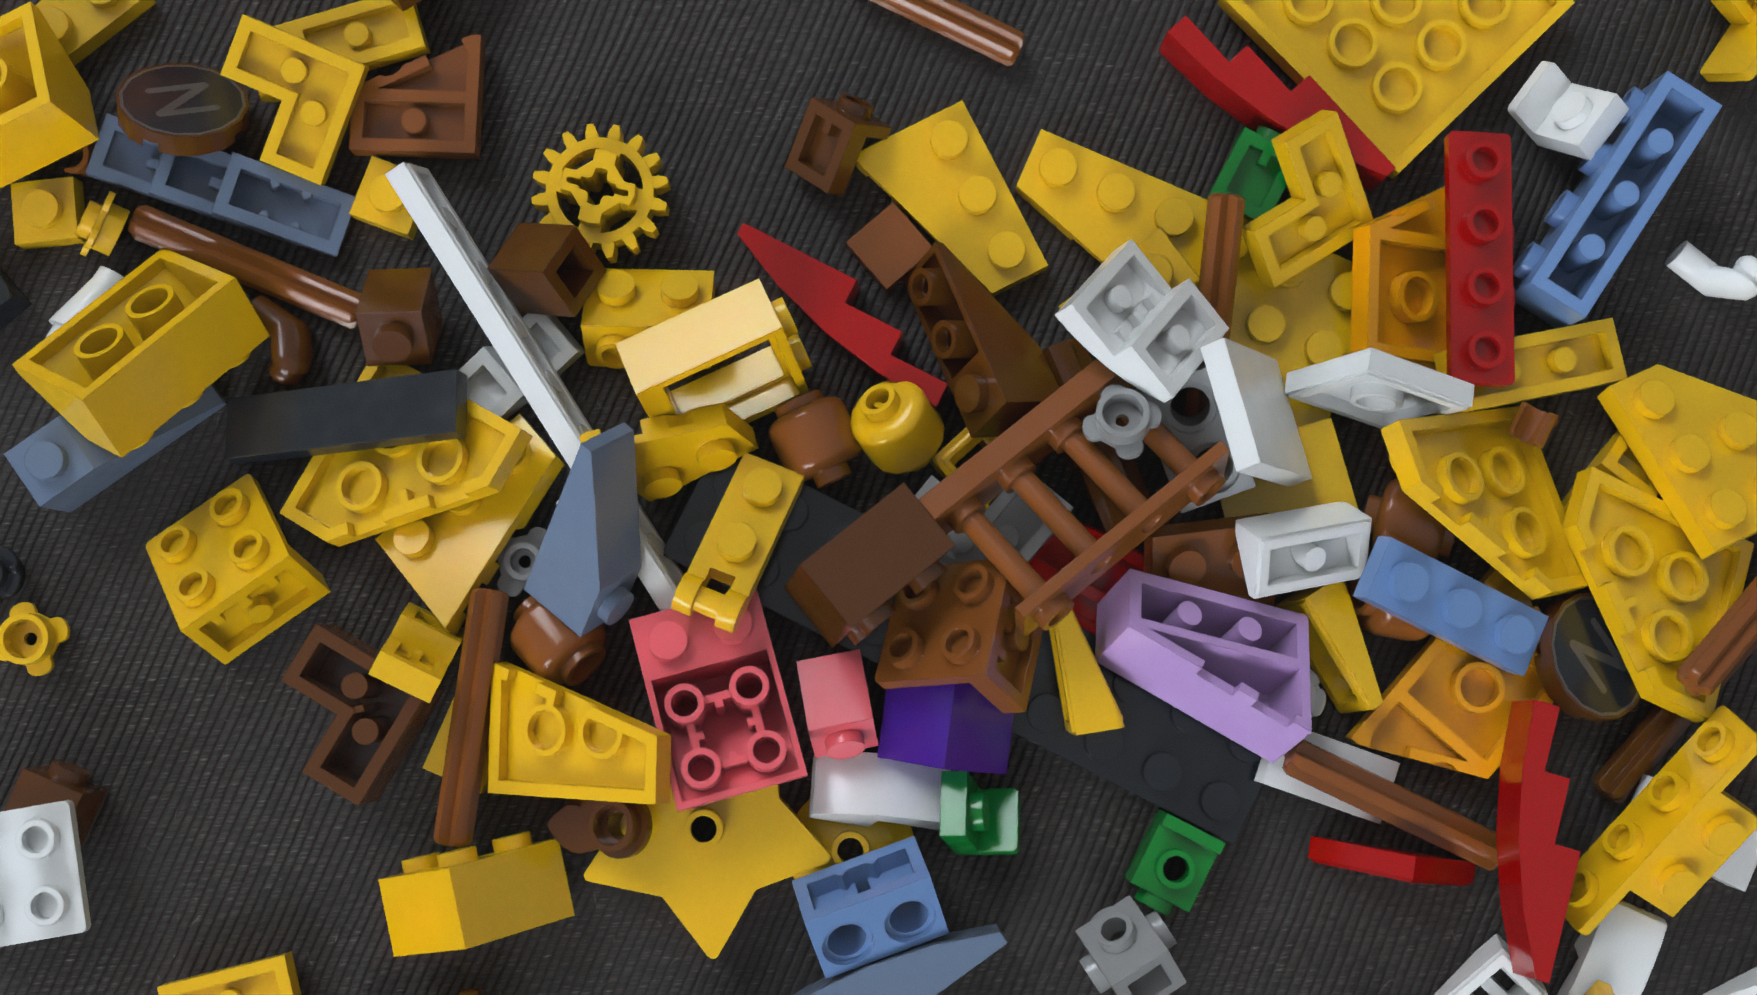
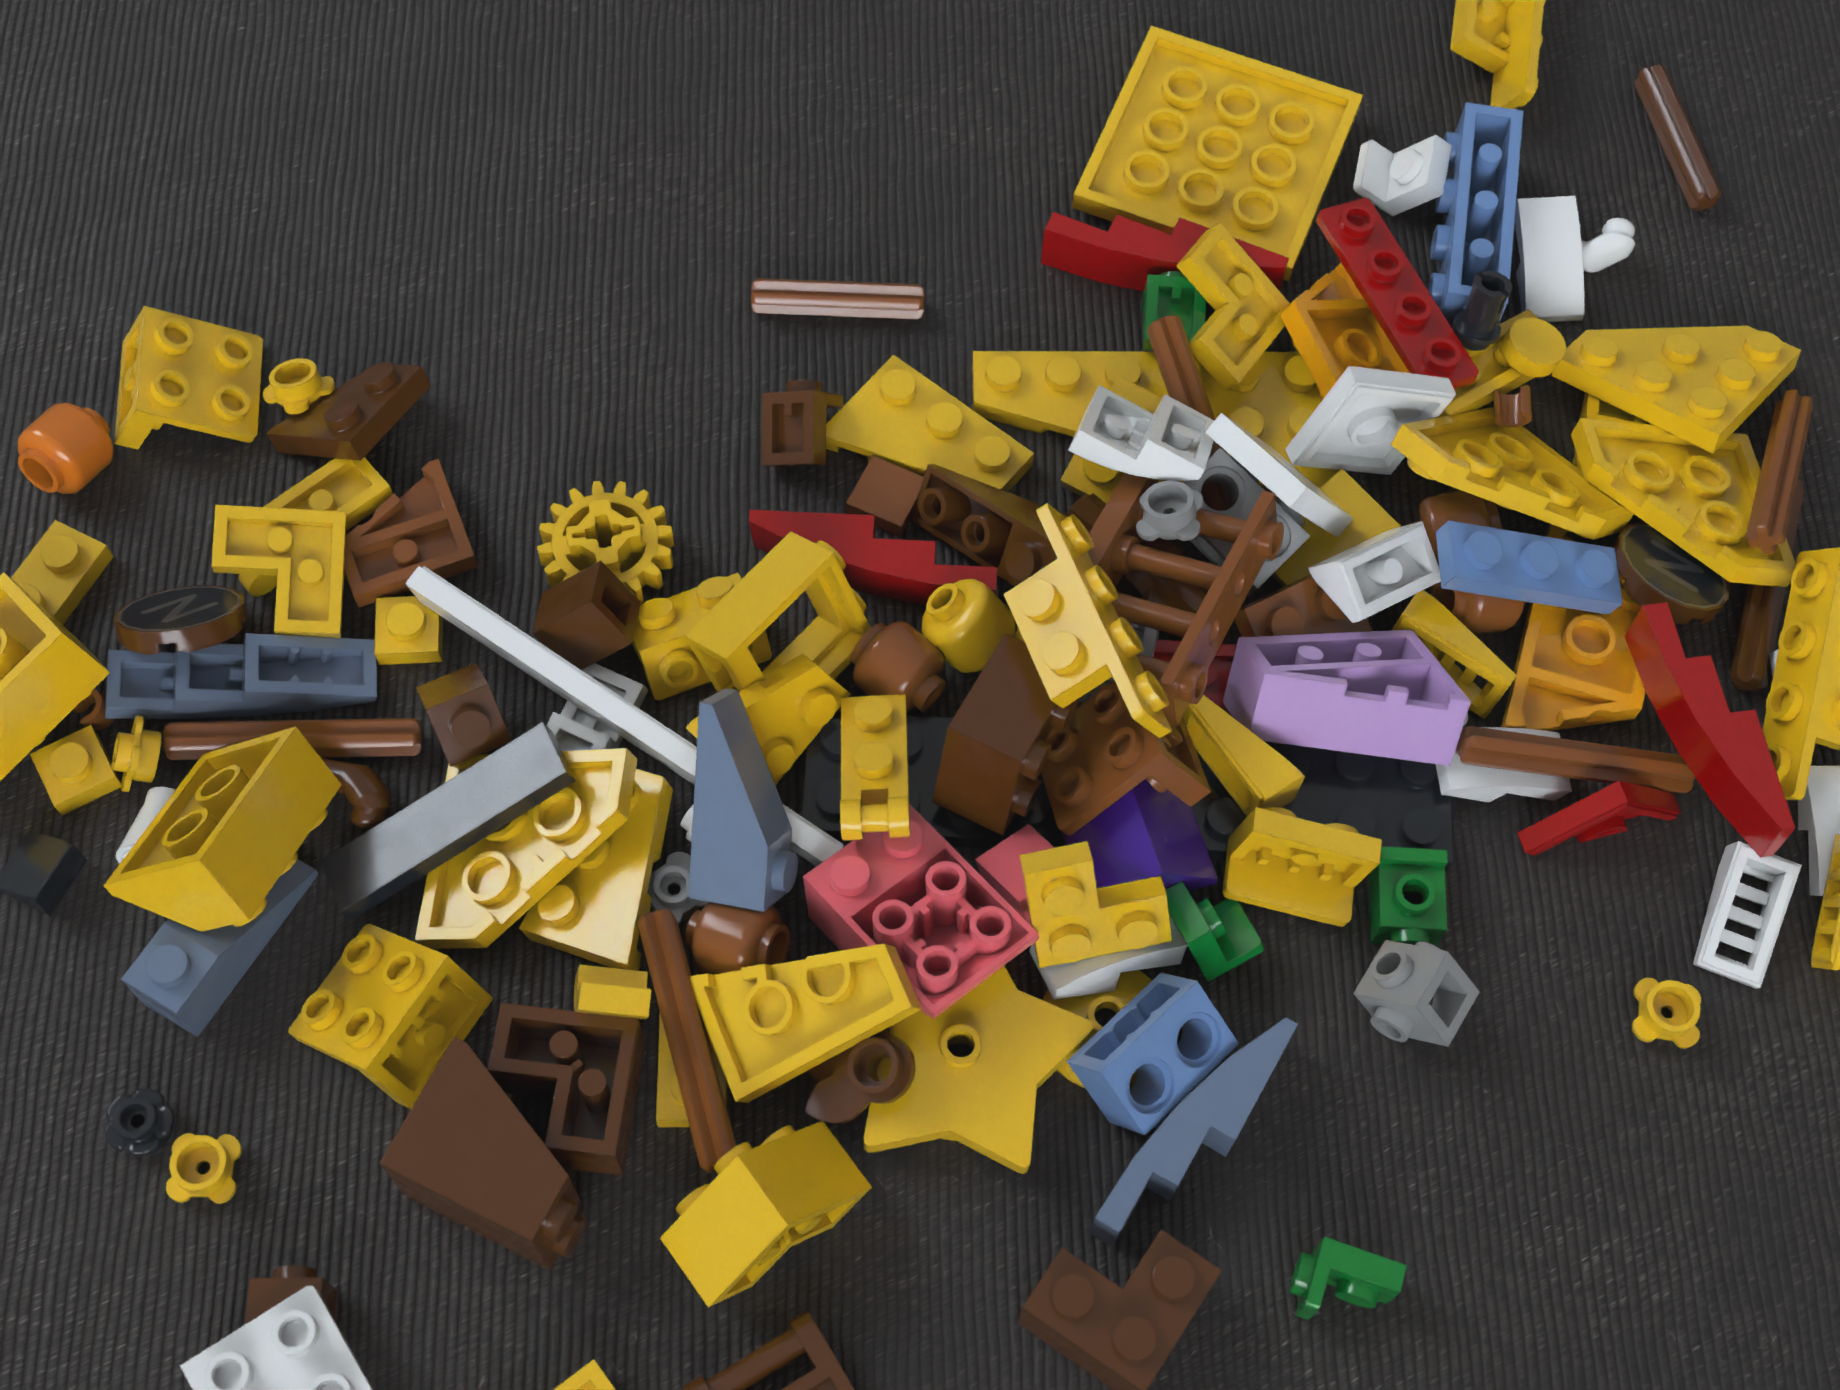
camera: 25 degrees left, 20 degrees down
(245, 756) = (483, 1163): none -> reddish brown slope
(847, 766) = (1088, 921): none -> yellow plate
(968, 518) = (1076, 631): none -> yellow bracket
(1081, 796) = (1298, 865): none -> yellow bracket
(1546, 323) = (1479, 323): none -> black pin
(1588, 369) = (1533, 347): none -> yellow tile
(1665, 269) = (1550, 258): none -> white slope

